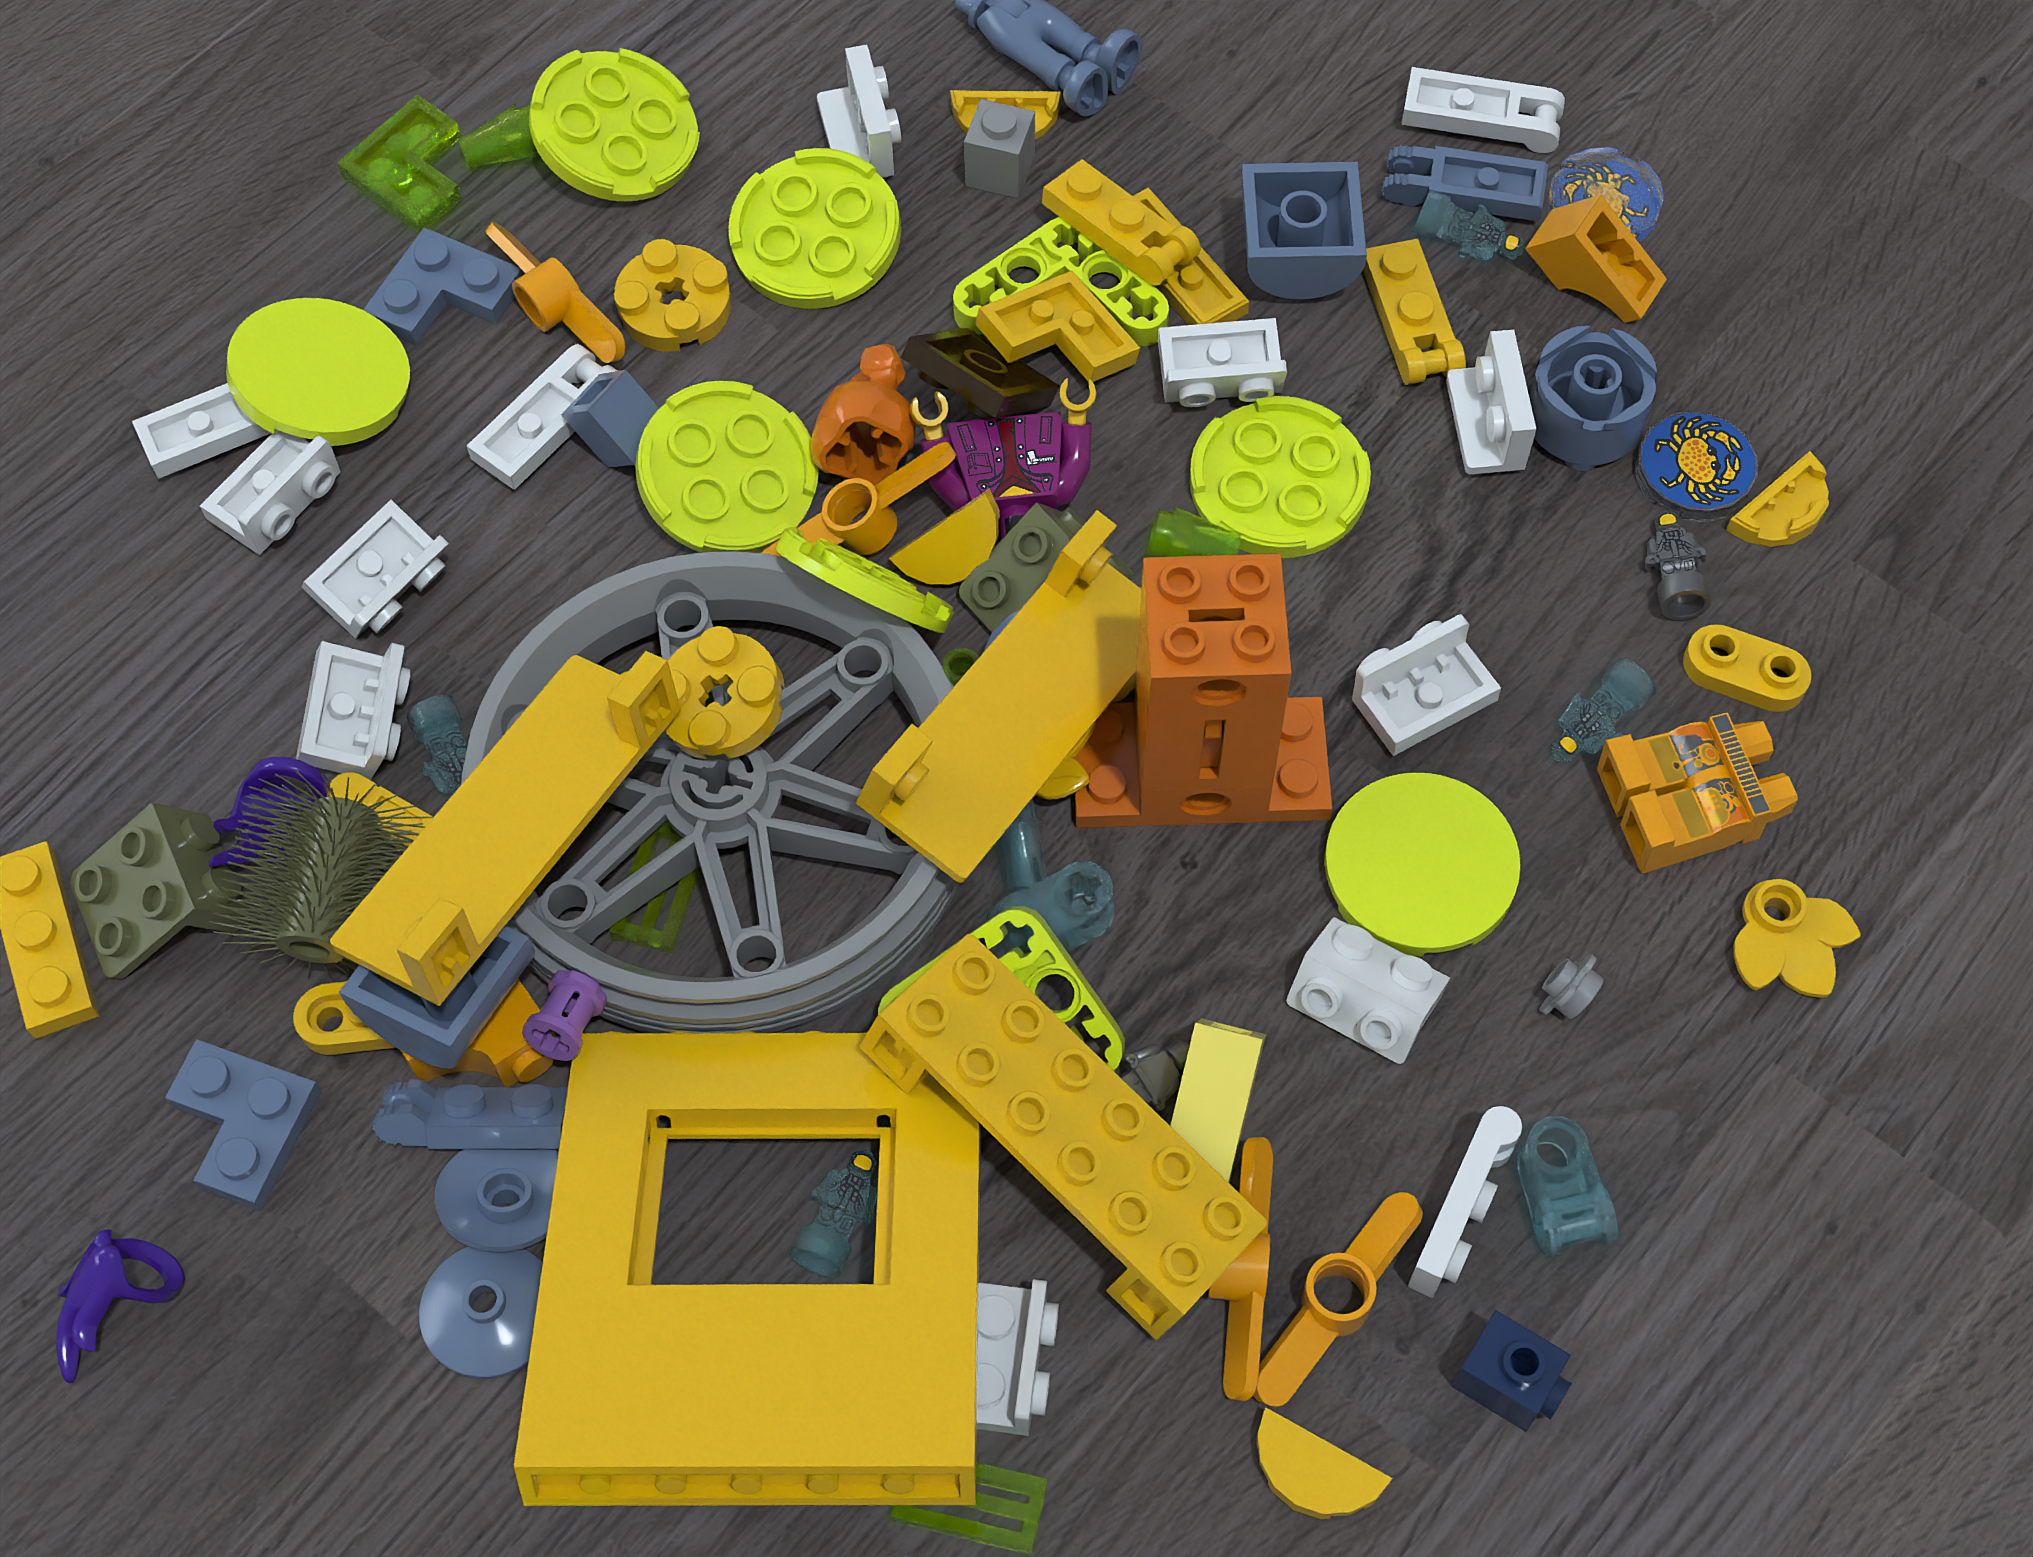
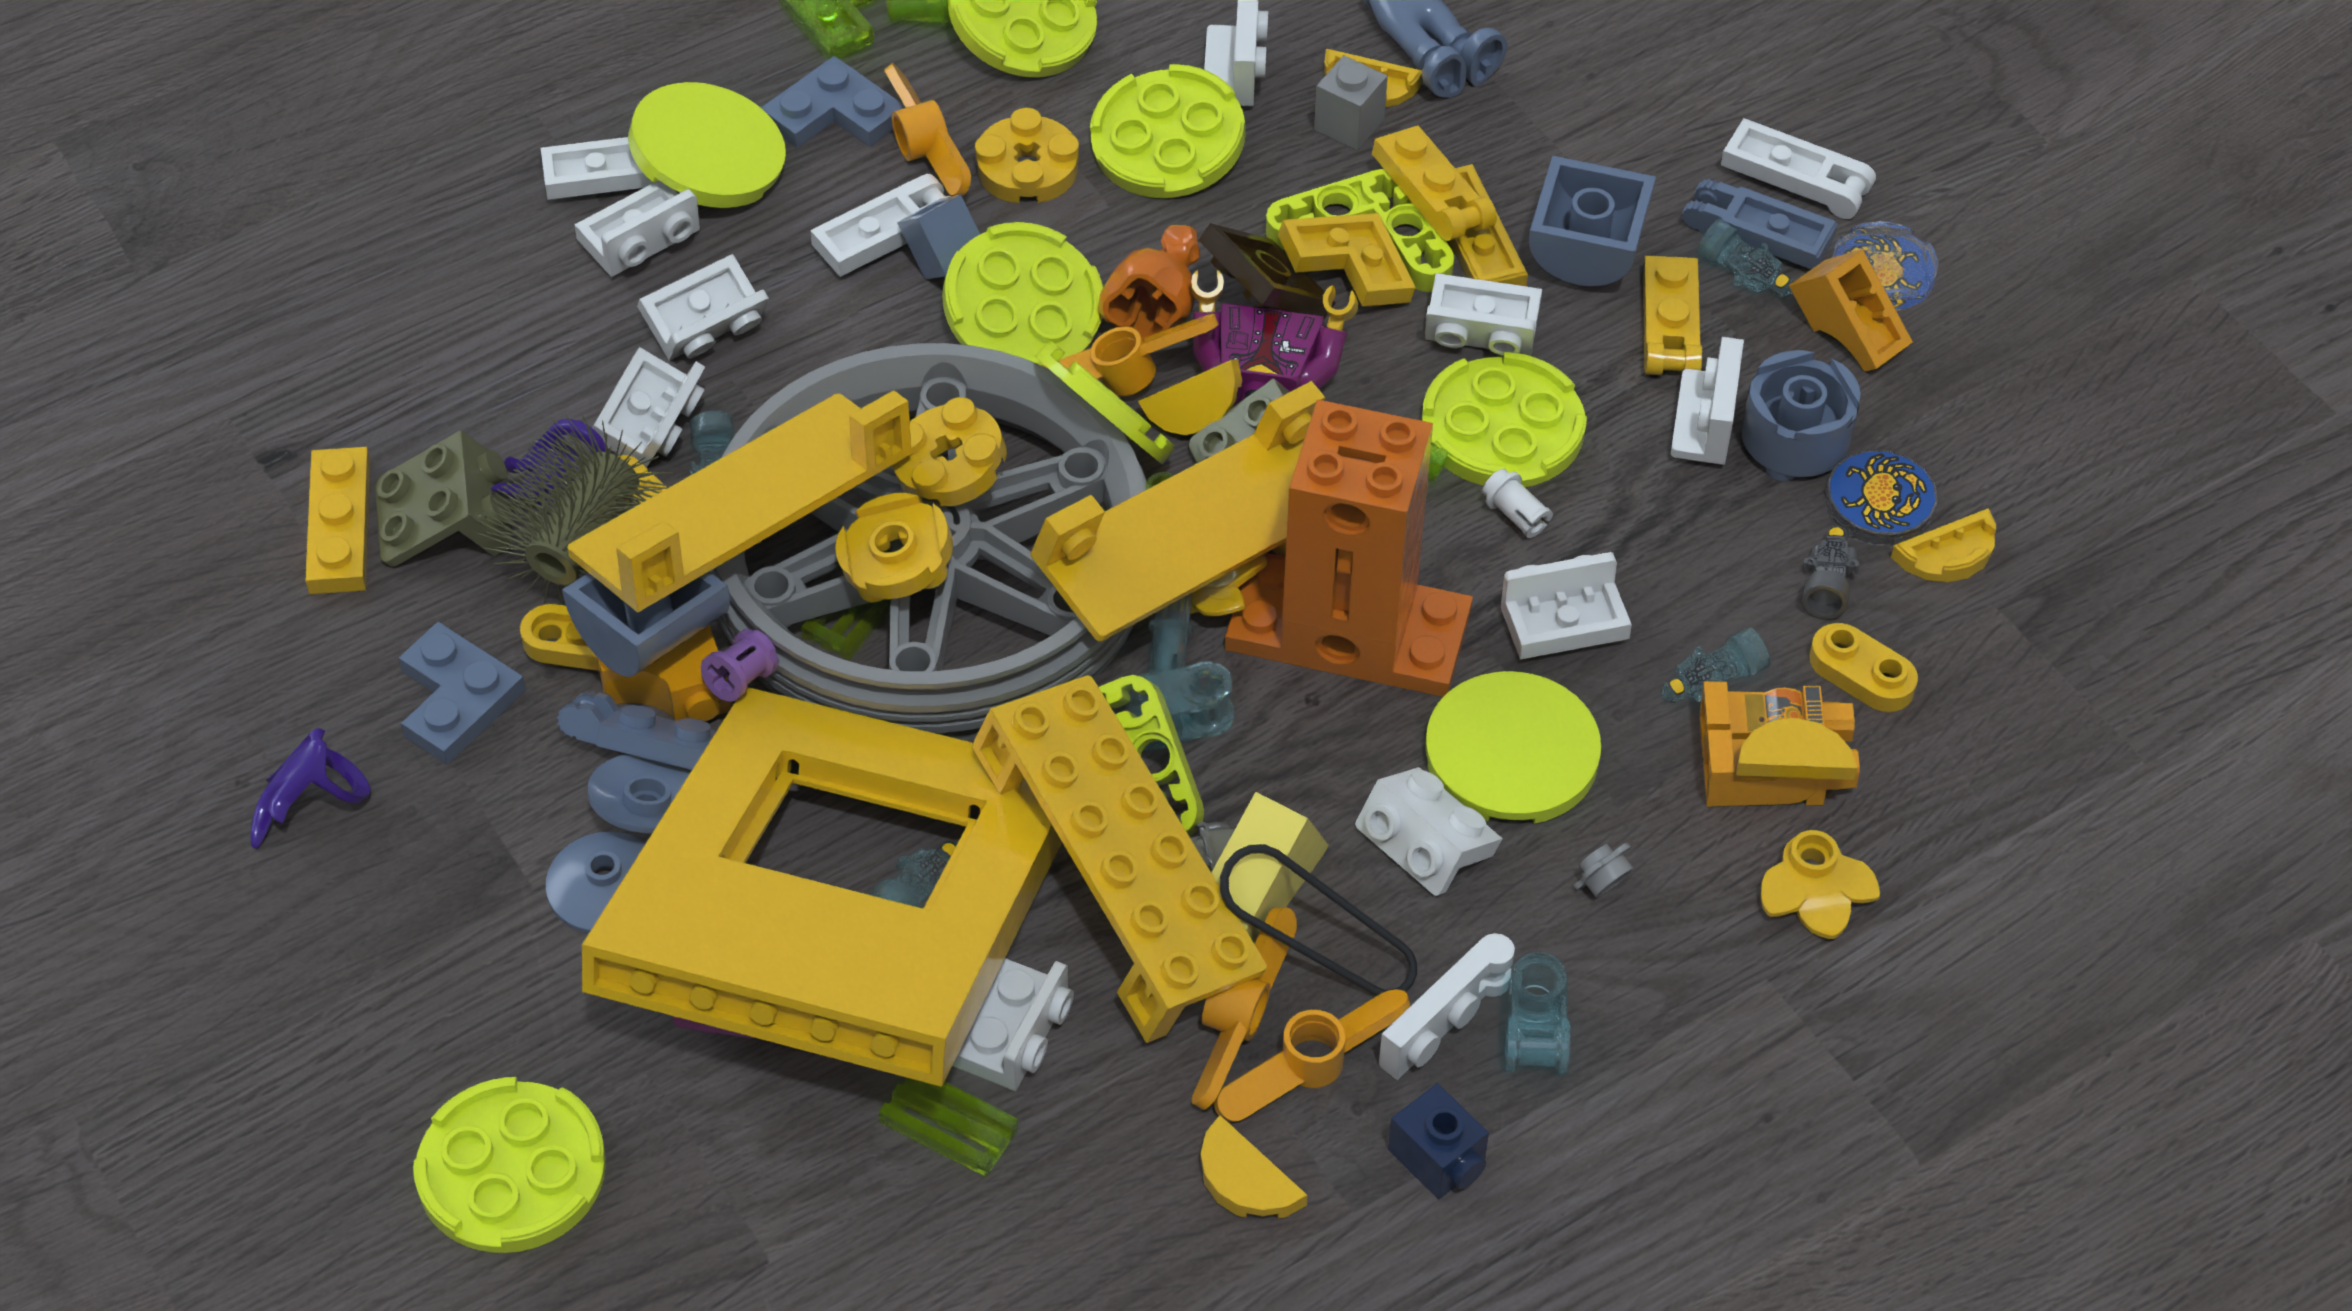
camera: 15 degrees right, 10 degrees down
(718, 853) = (903, 572): none -> yellow plate
(1306, 1113) = (1331, 894): none -> black piece
(1328, 572) = (1507, 494): none -> white pin
(1736, 799) = (1796, 751): none -> yellow tile

